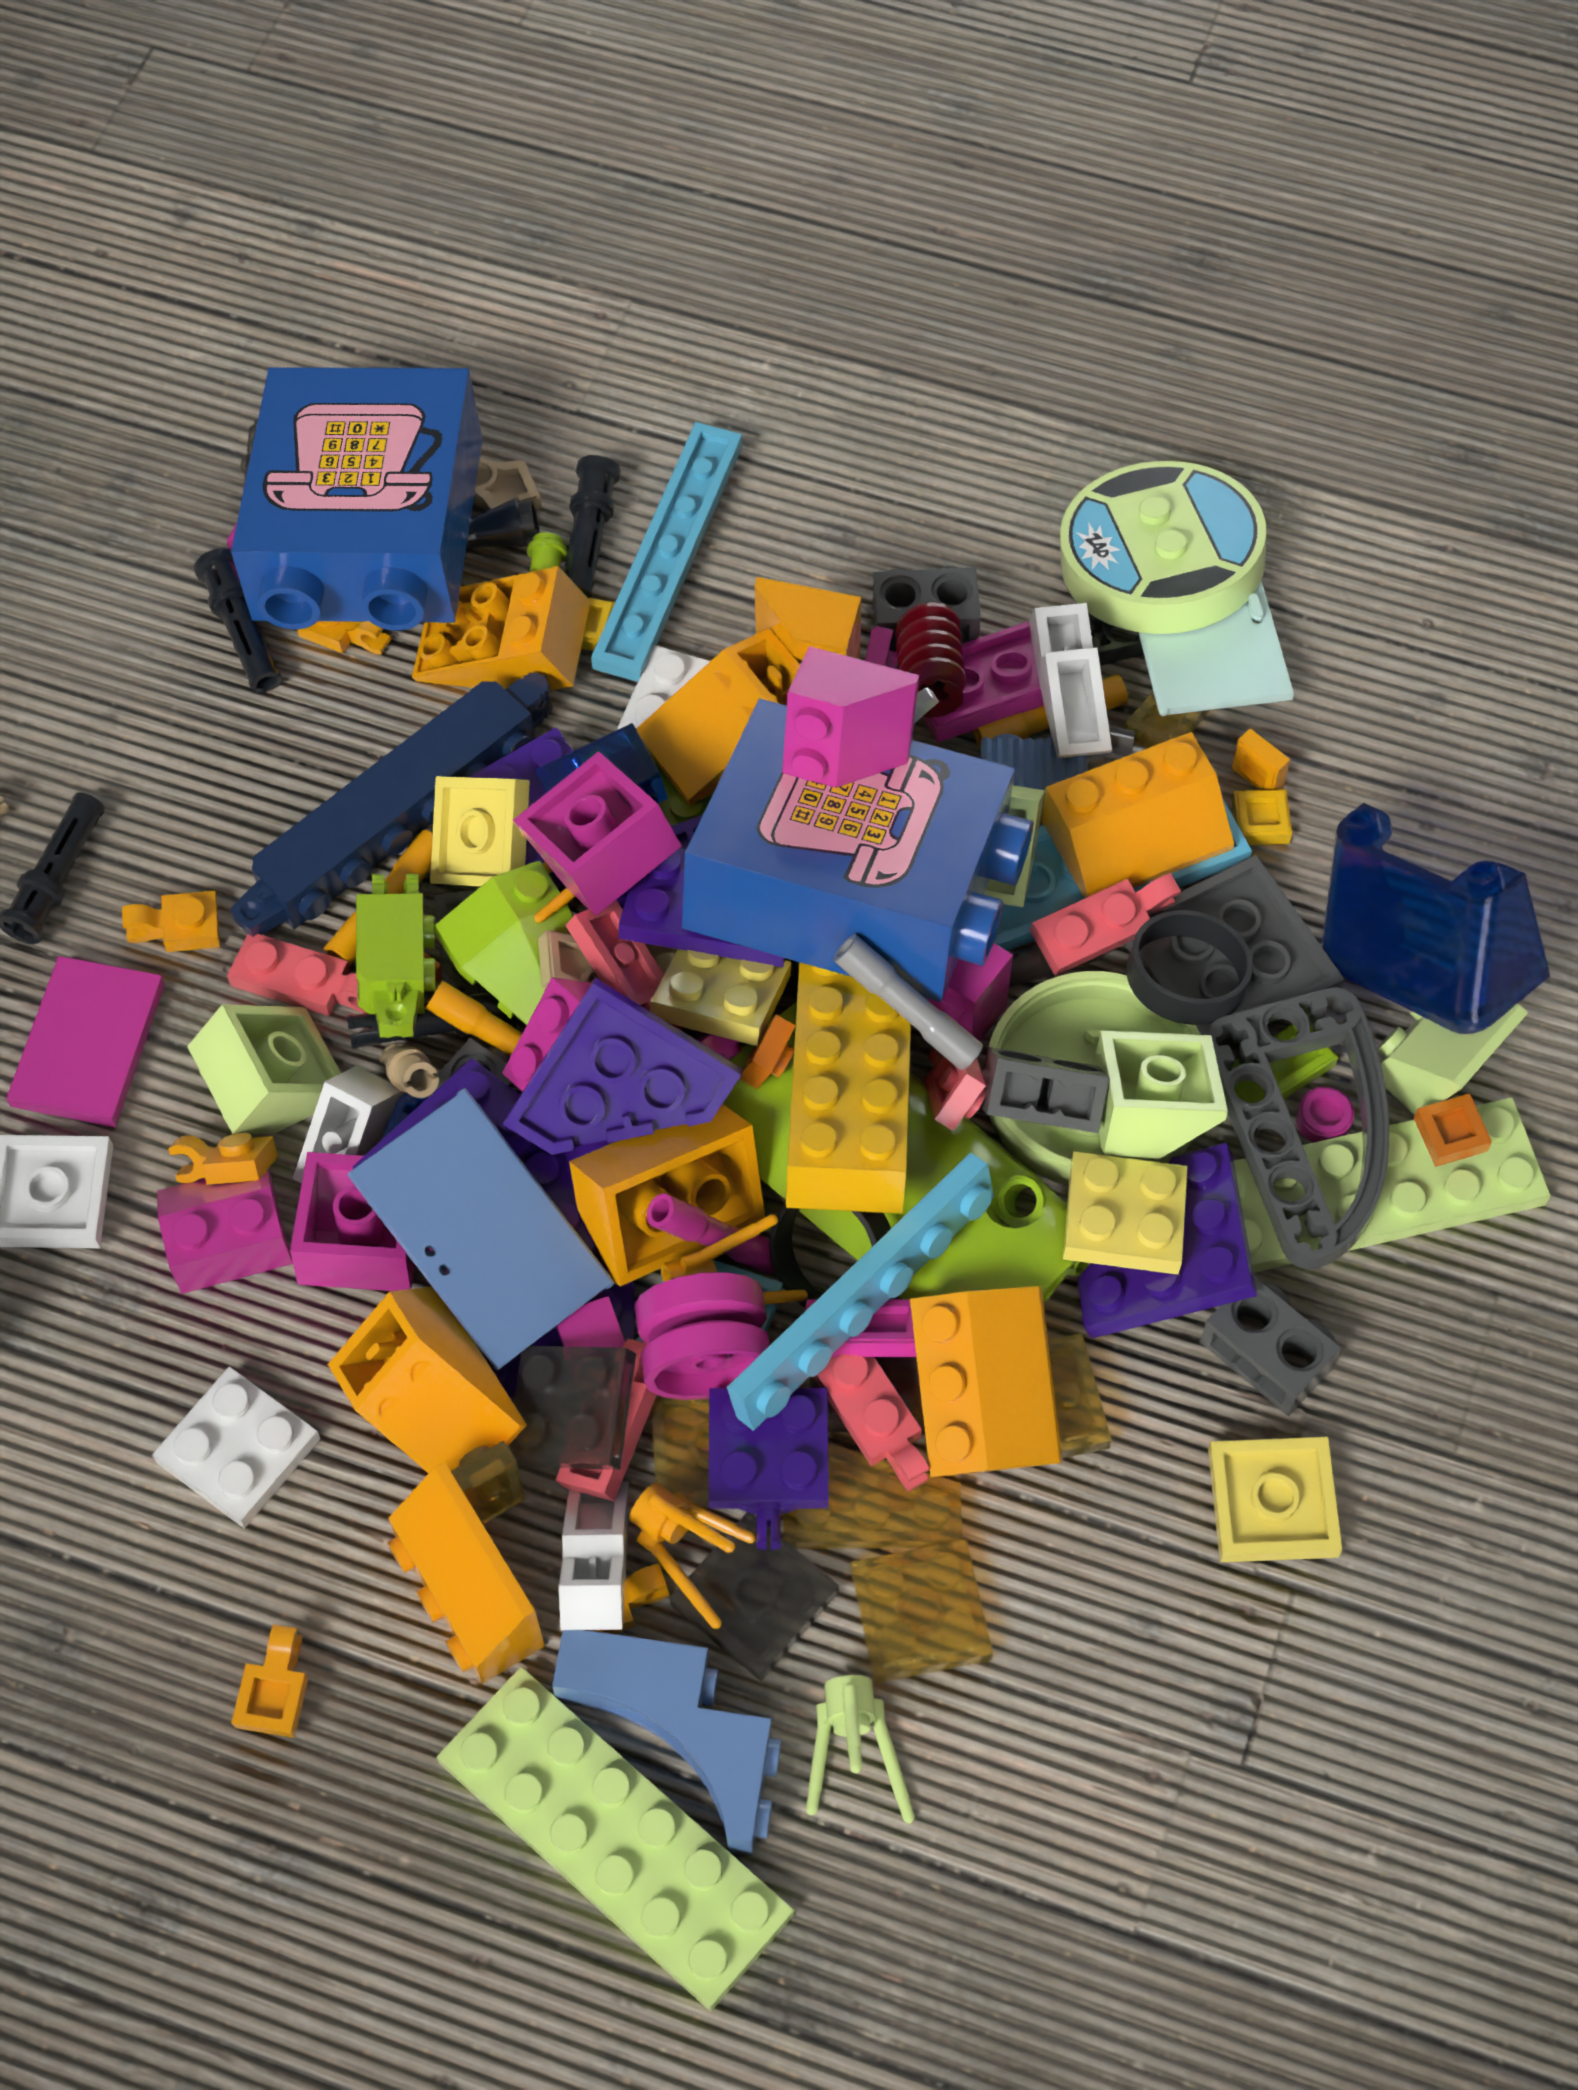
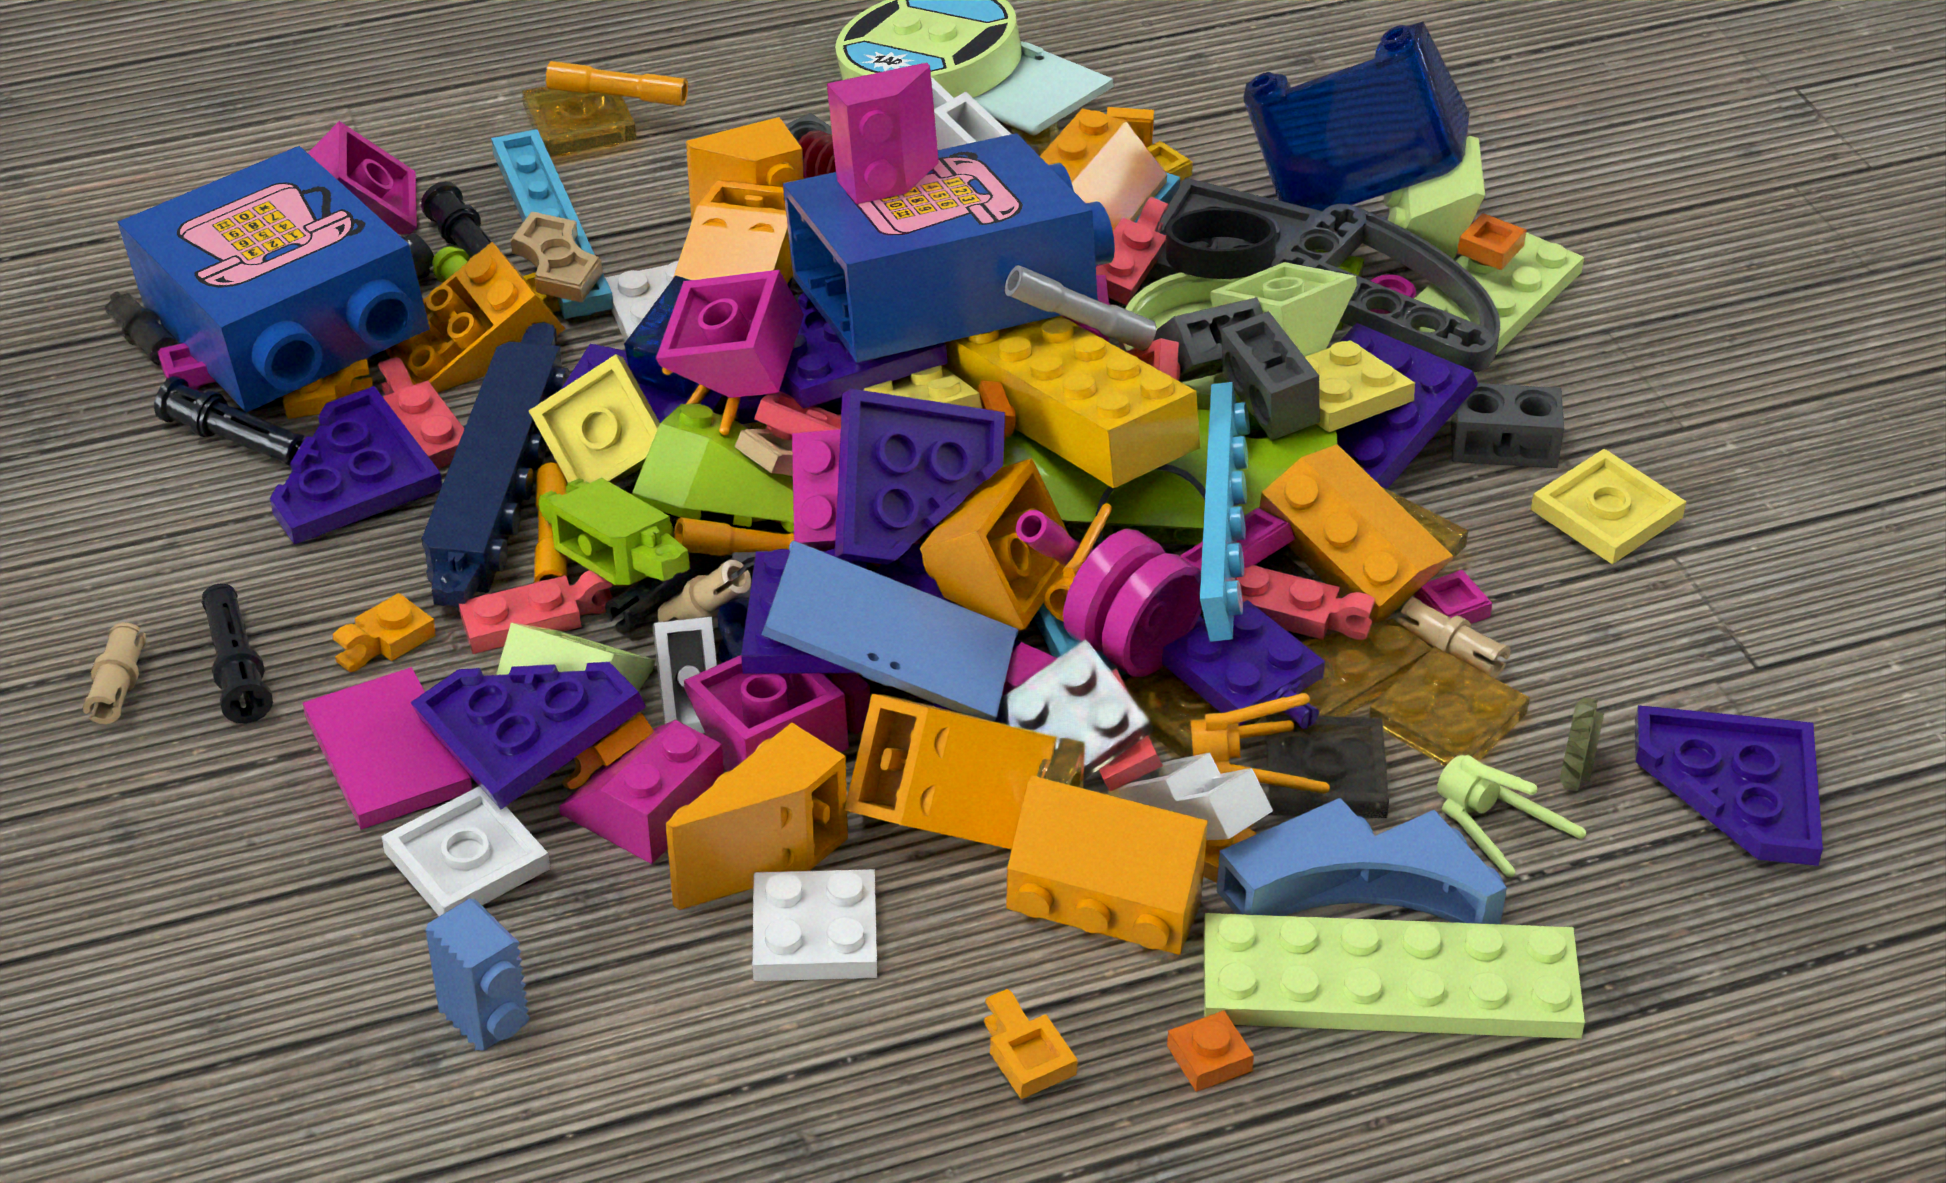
camera: 40 degrees left, 20 degrees down
(165, 1104) = (525, 723): none -> dark purple plate
(261, 1329) = (763, 816): none -> light orange slope
(288, 731) = (352, 468): none -> dark purple plate
(387, 705) = (421, 412): none -> coral plate
(410, 1795) = (1210, 1051): none -> orange plate
(545, 414) = (371, 175): none -> dark pink slope
(617, 621) = (561, 265): none -> tan tile
(798, 434) = (578, 120): none -> clear yellow plate
(864, 444) = (645, 87): none -> light orange piece
(970, 1743) = (1581, 744): none -> olive gear
(991, 1542) = (1454, 637): none -> tan pin
(1039, 1174) = (1270, 375): none -> dark grey brick
(1040, 1499) = (1455, 596): none -> dark pink tile
(1092, 1872) = (1741, 774): none -> dark purple plate

